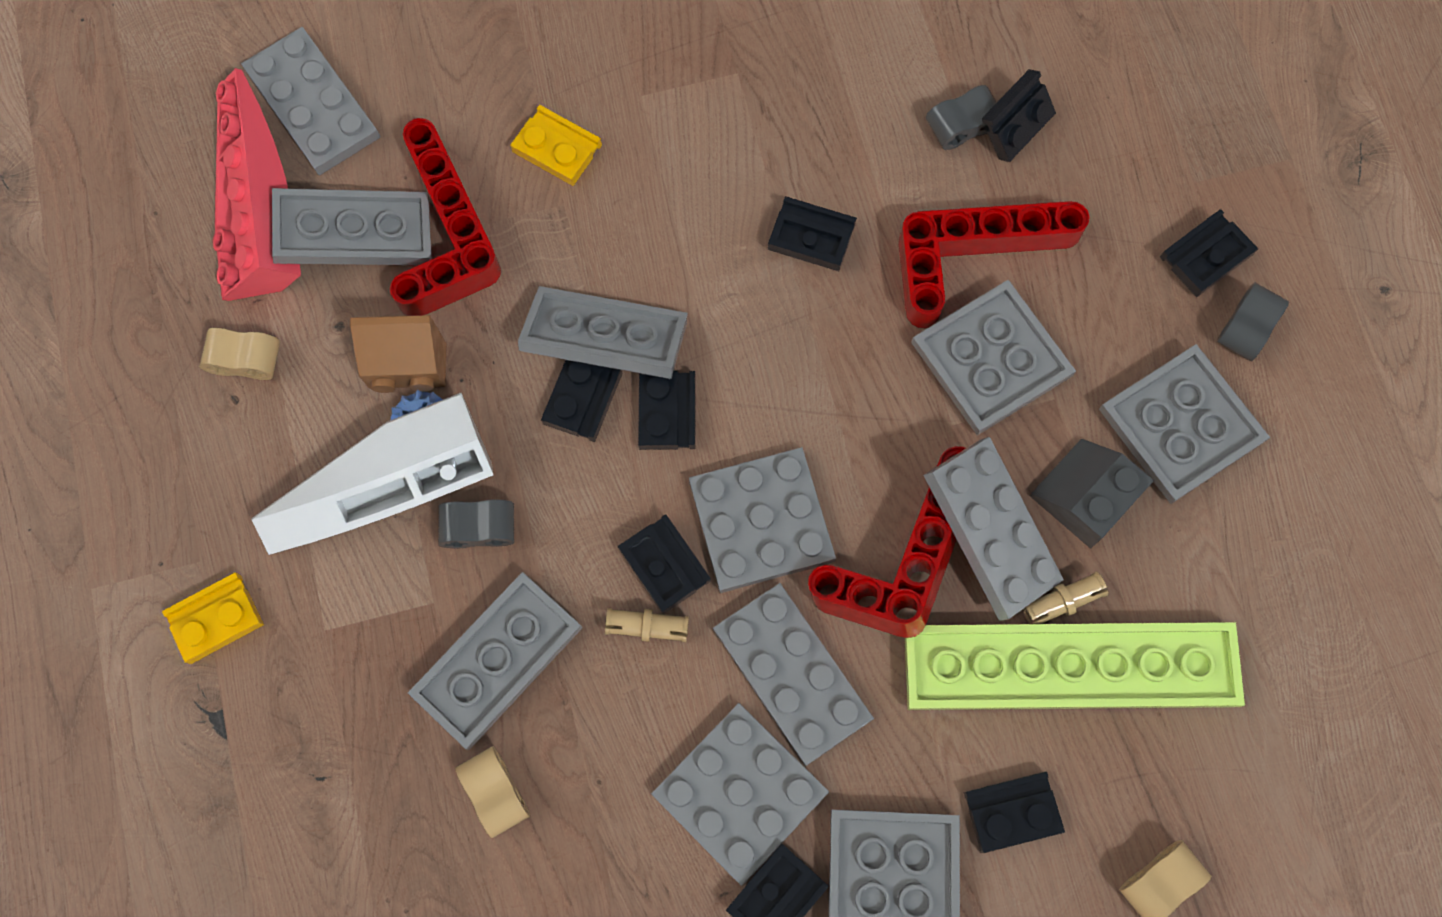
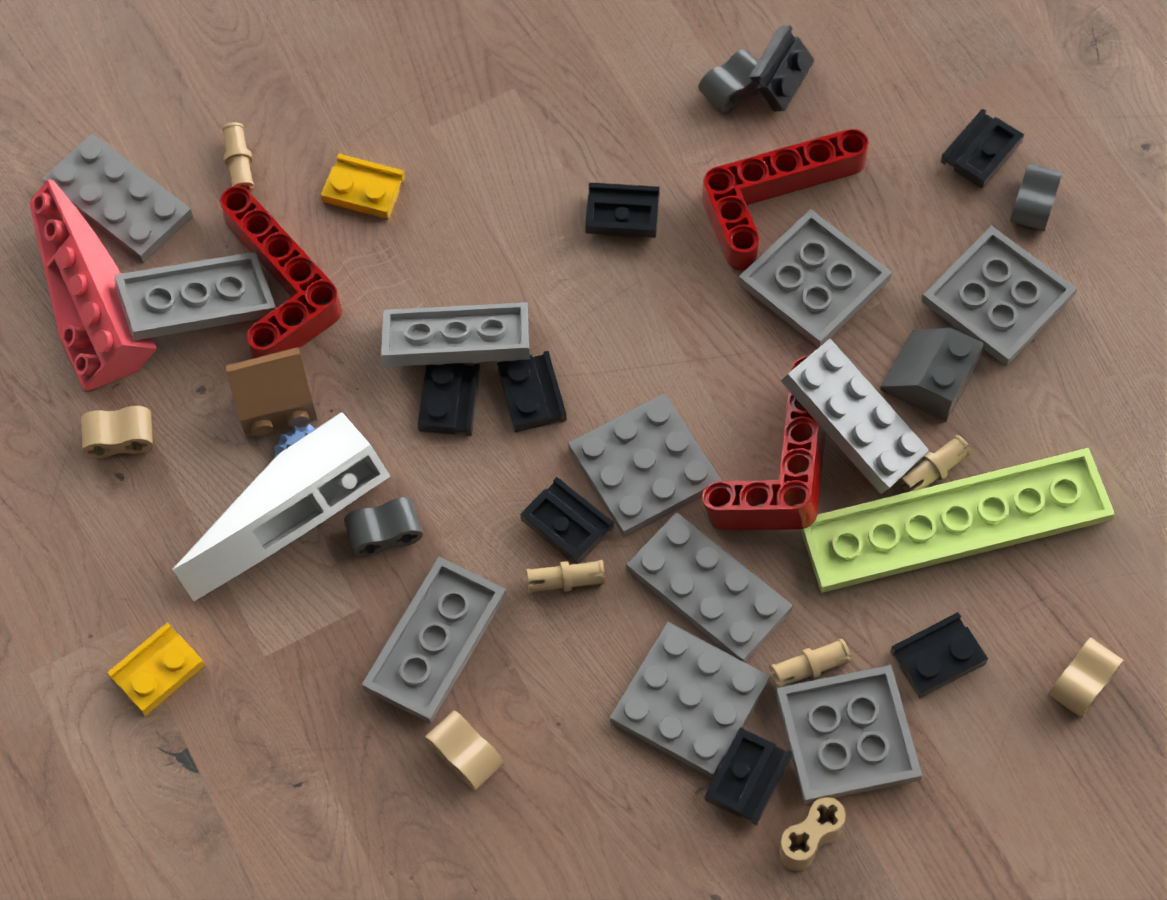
camera: 15 degrees left, 10 degrees down
(438, 85) = (237, 155): none -> tan pin
(875, 788) = (810, 663): none -> tan pin

